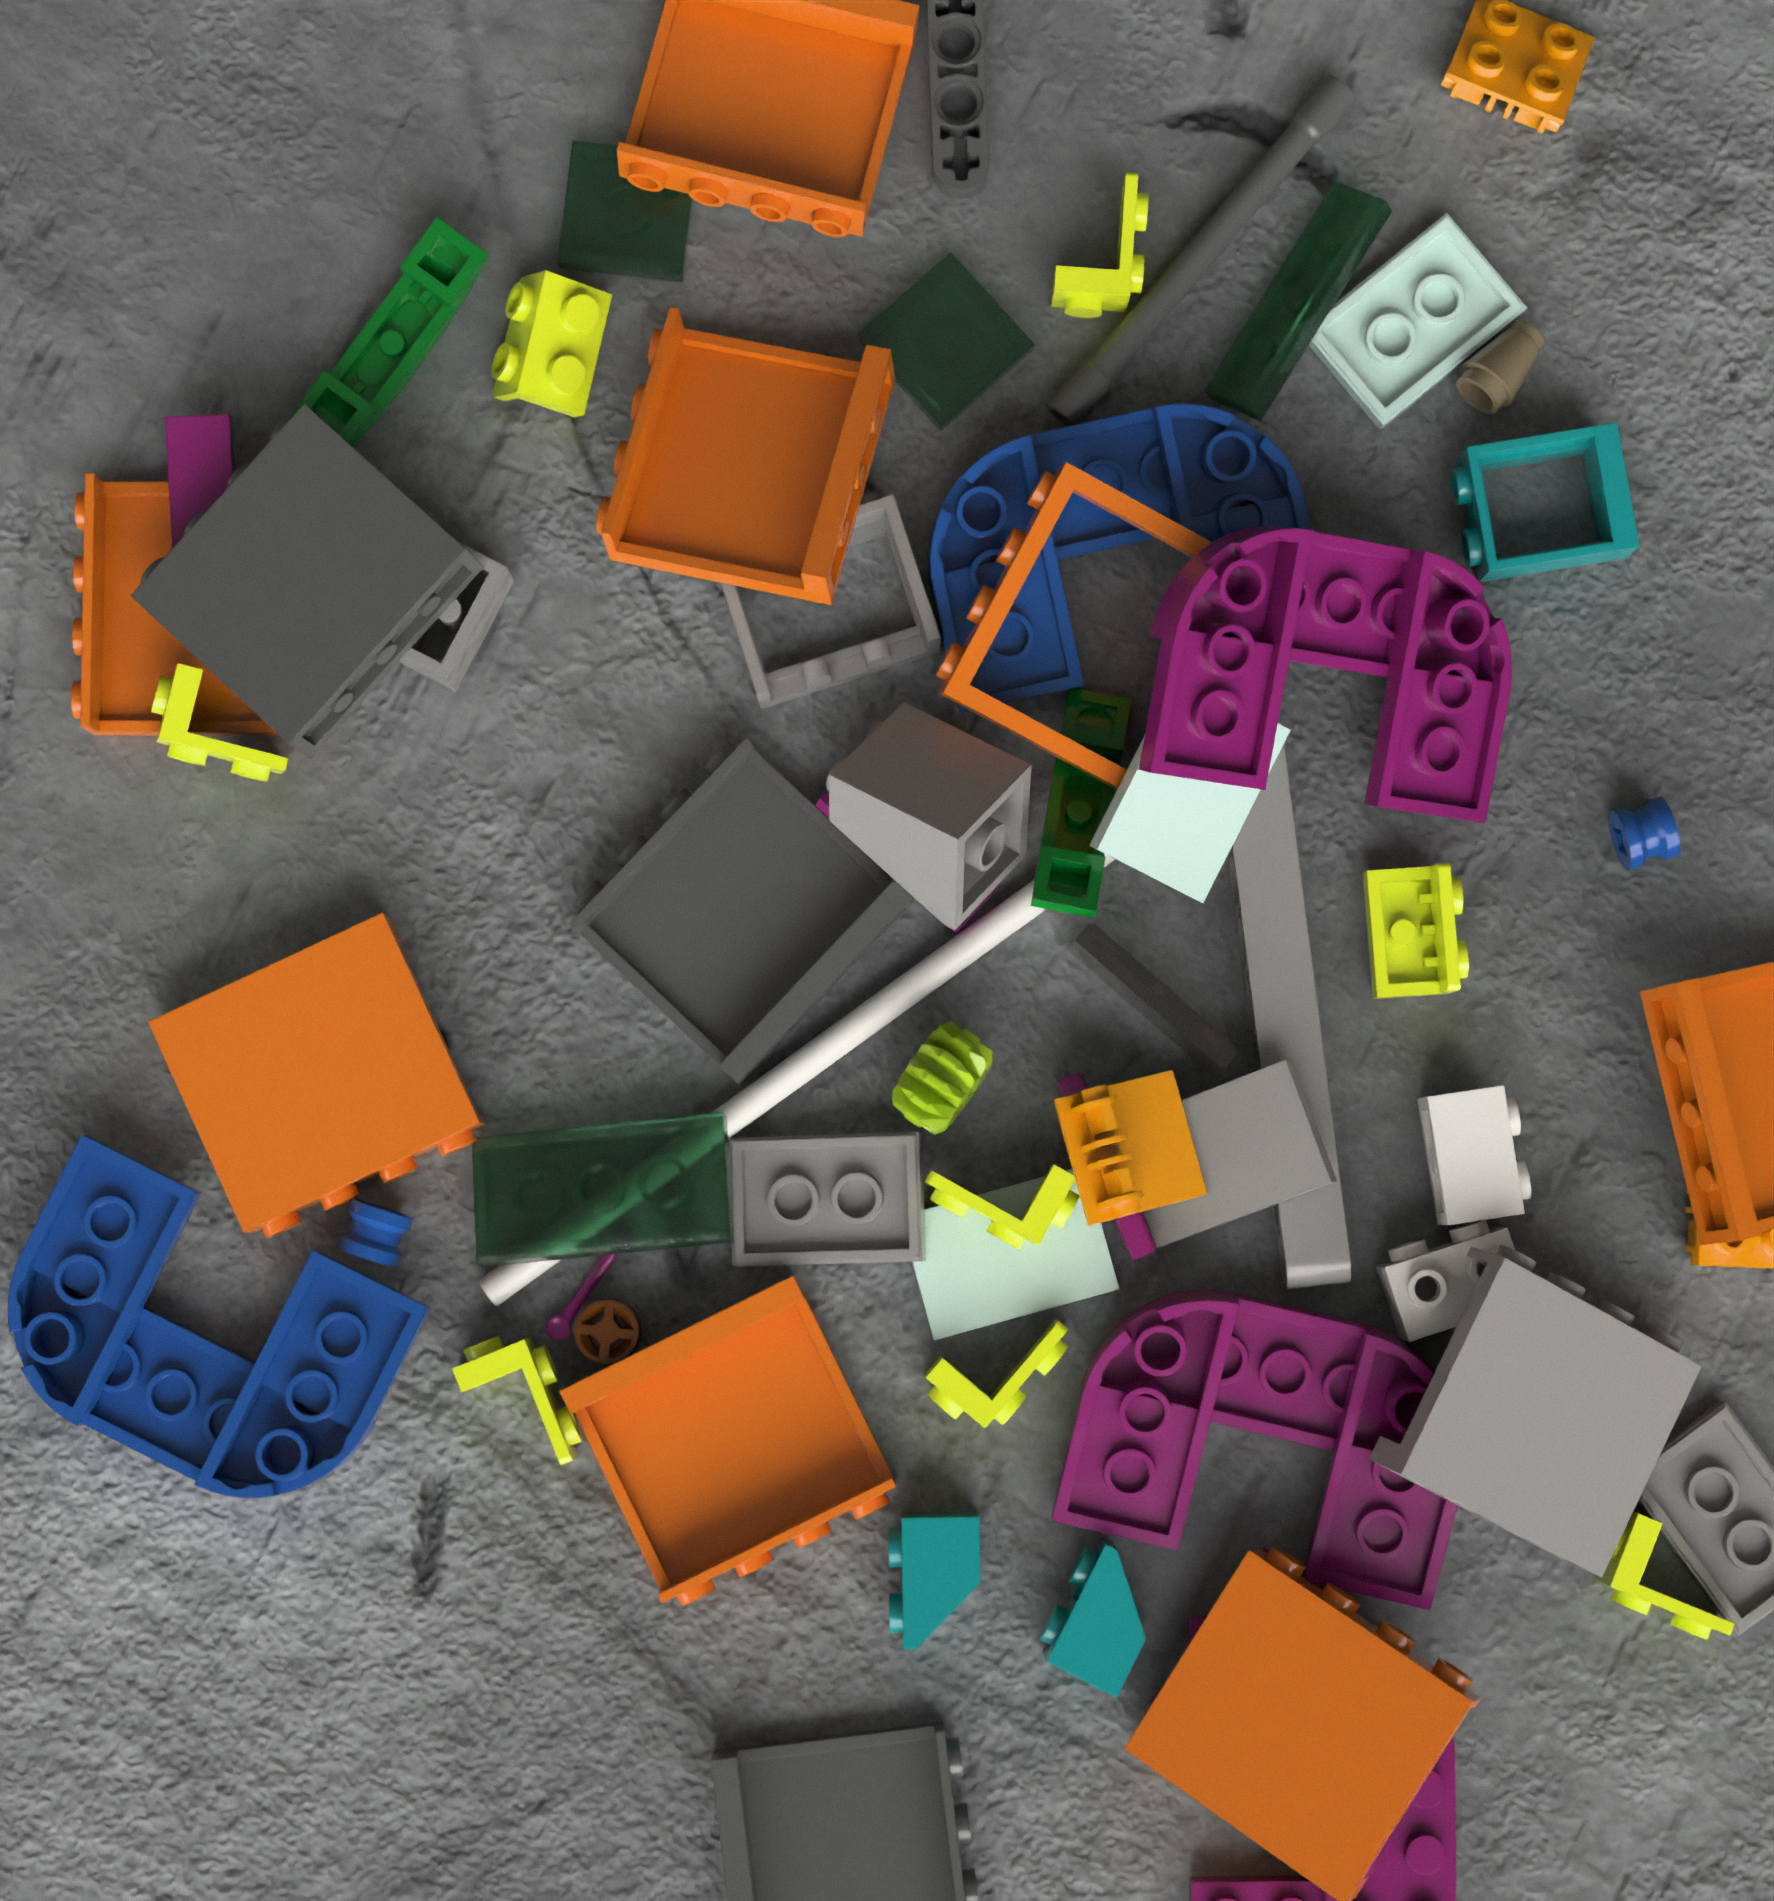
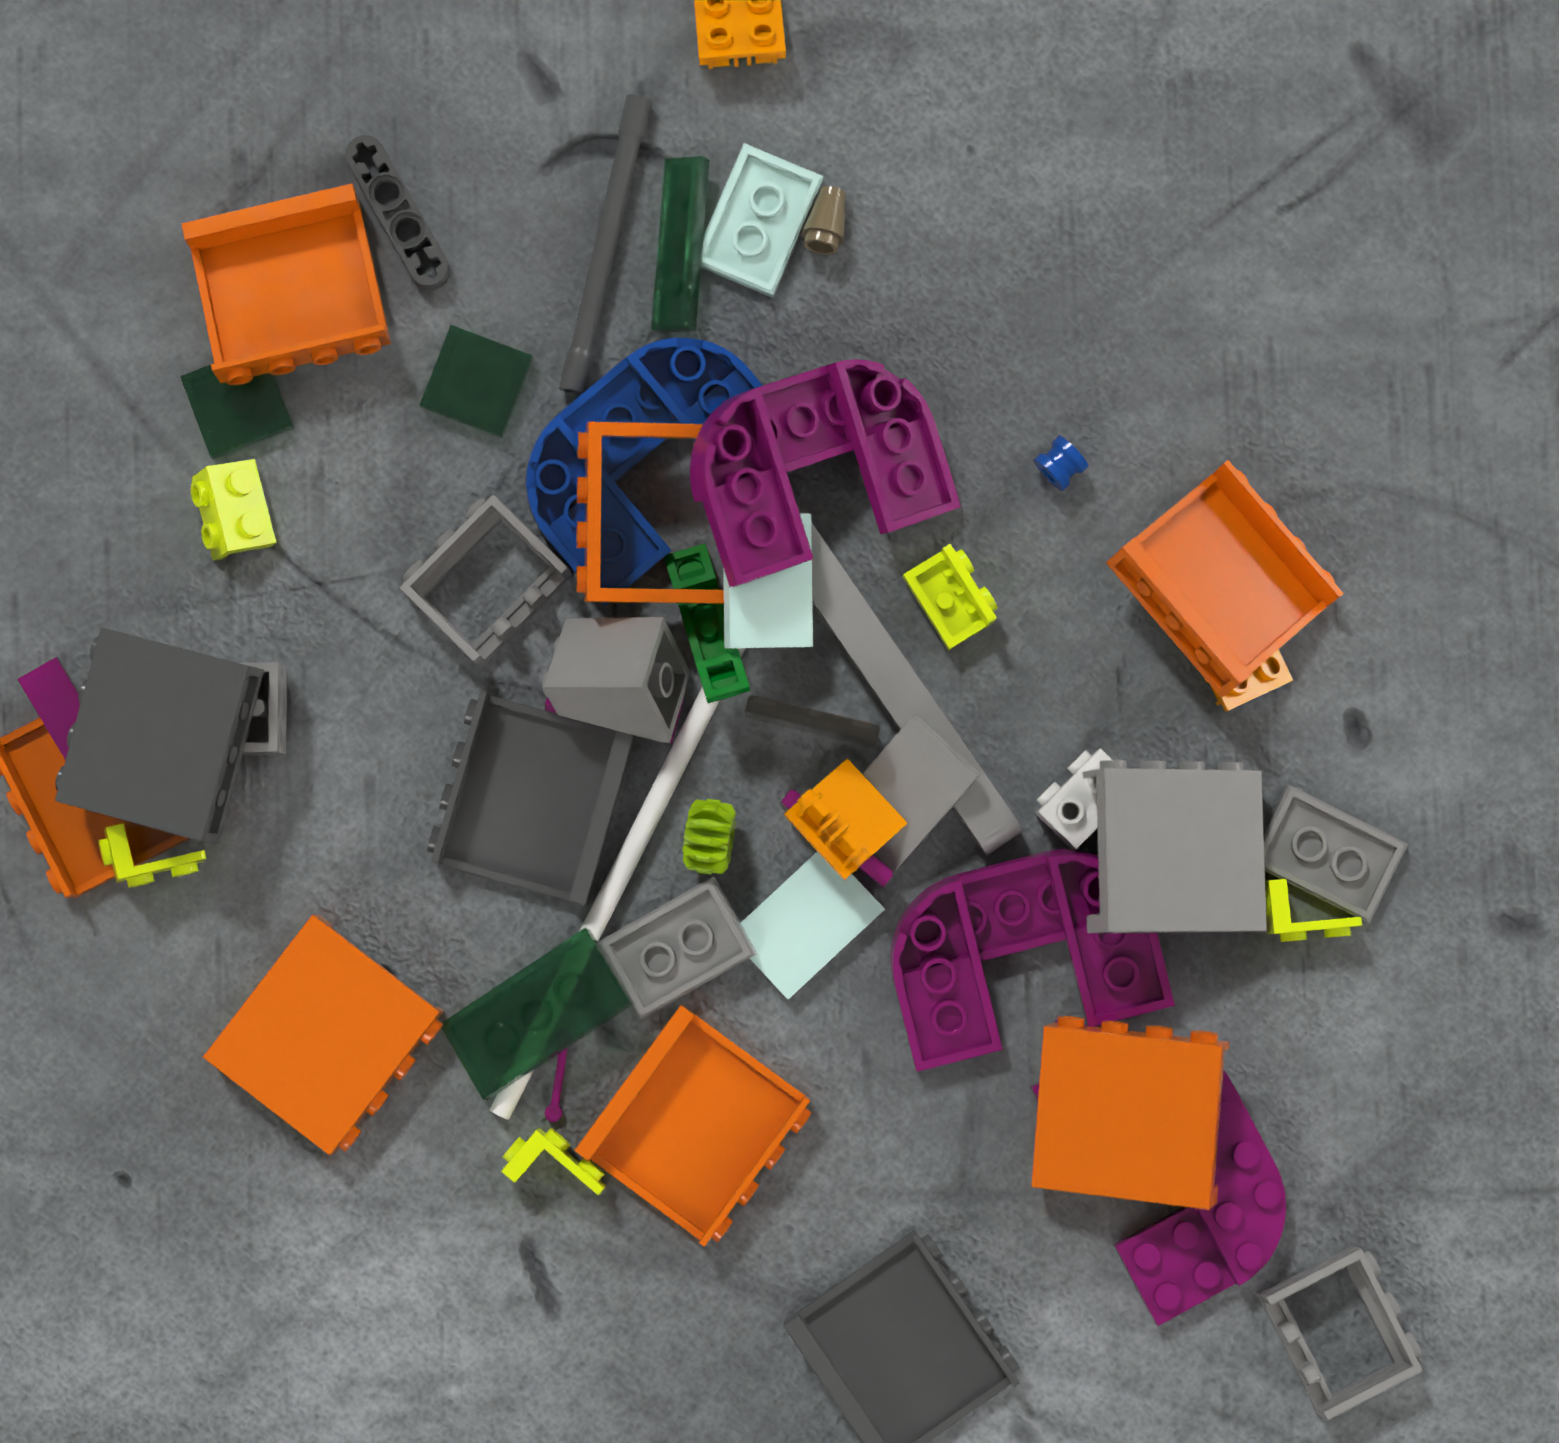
camera: 25 degrees left, 0 degrees up
(171, 1390) = (334, 1275): blue plate -> none
(374, 1233) = (410, 1113): blue wheel -> none
(399, 333) = (134, 552): green slope -> none
(596, 1339) = (578, 1100): reddish brown wheel -> none
(746, 461) = (391, 520): orange panel -> none
(938, 1570) = (863, 1139): teal slope -> none
(958, 1393) = (819, 1024): neon yellow bracket -> none
(1049, 1206) = (815, 879): neon yellow bracket -> none
(1090, 291) = (550, 304): neon yellow bracket -> none
(1100, 1627) = (979, 1121): teal slope -> none
(1473, 1155) = (1057, 714): white brick -> none
(1606, 486) = (930, 264): teal window -> none

